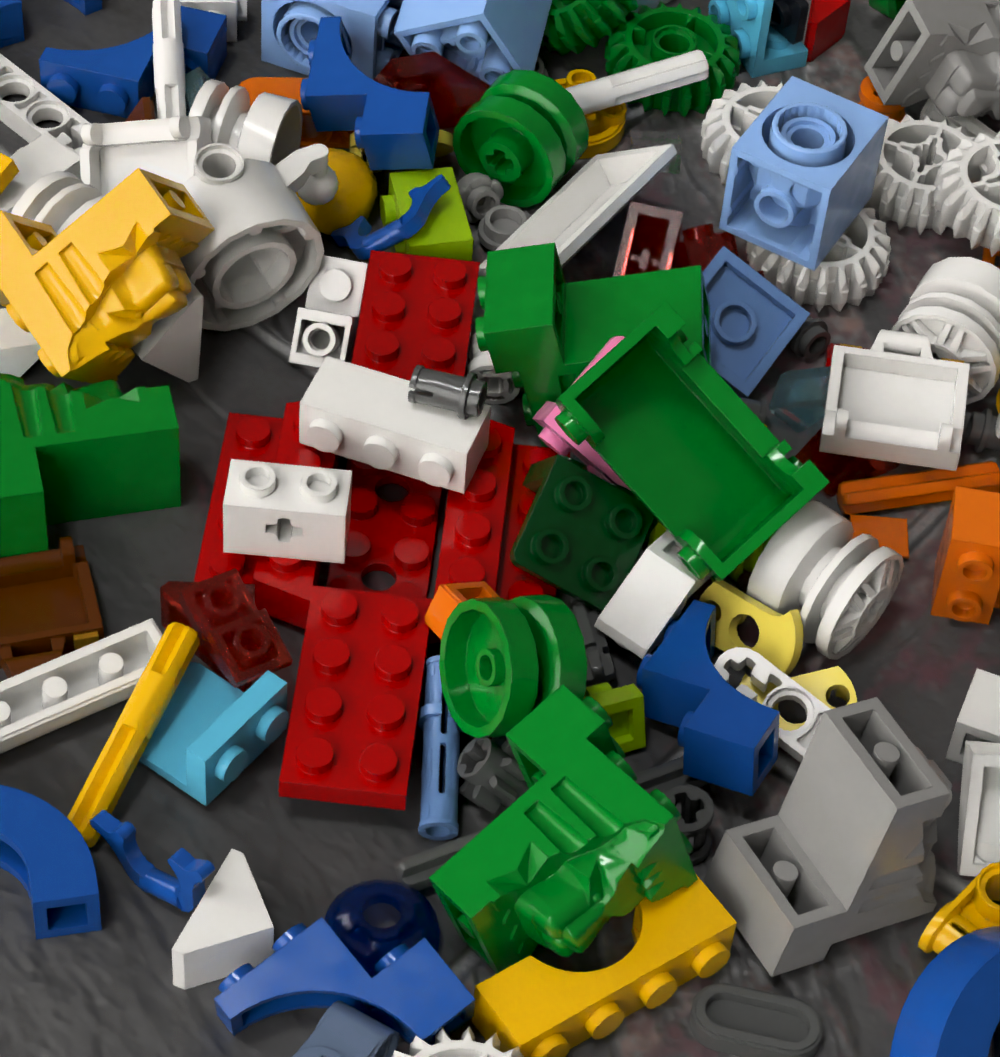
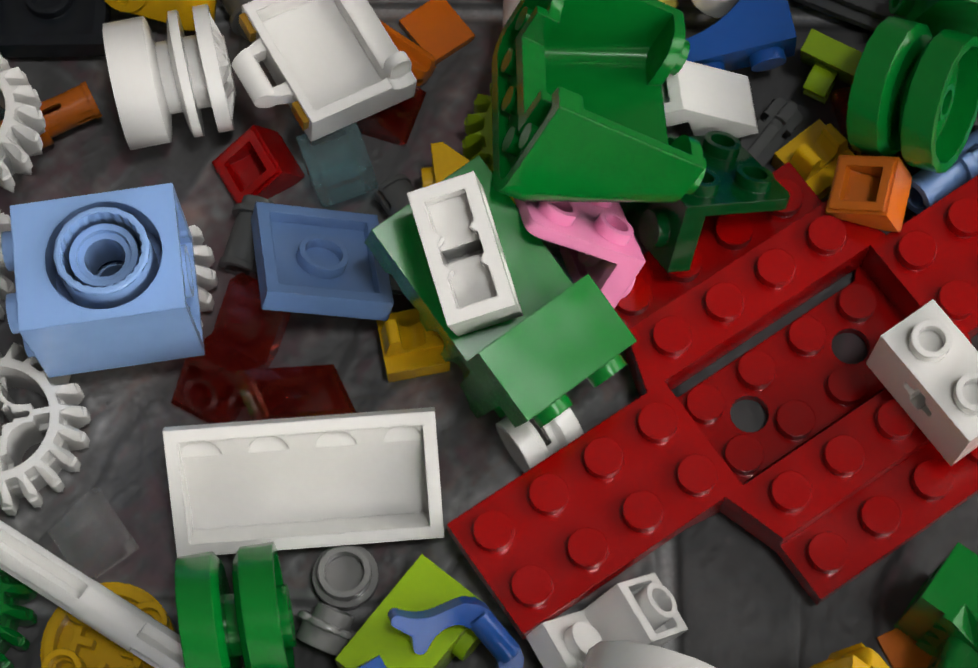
camera: 125 degrees left, 20 degrees up
(372, 422) = (759, 387): white brick -> none
(448, 391) = (723, 325): dark grey pin -> none
(625, 268) = (464, 254): none -> white brick

